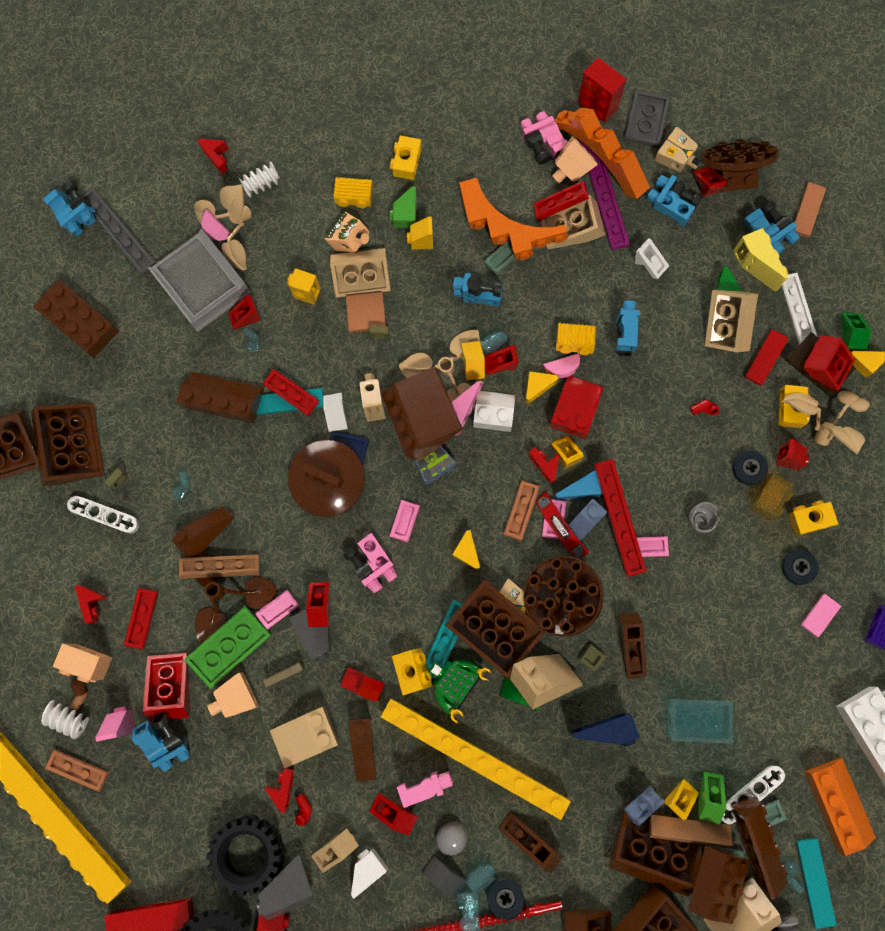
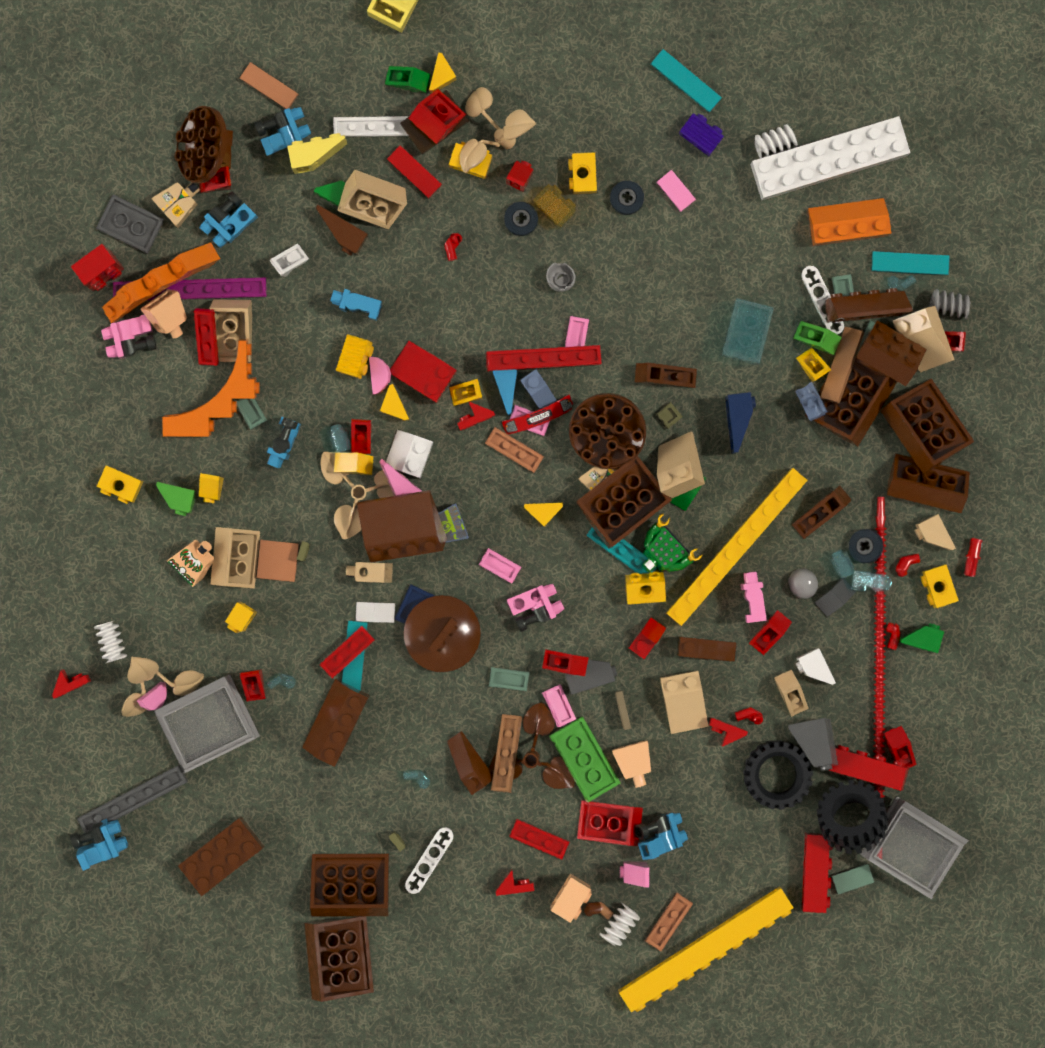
camera: 85 degrees left, 10 degrees up
(294, 554) = (509, 679): none -> sand green tile
(353, 192) = (145, 547): yellow brick -> none
(690, 306) = (346, 234): none -> reddish brown slope

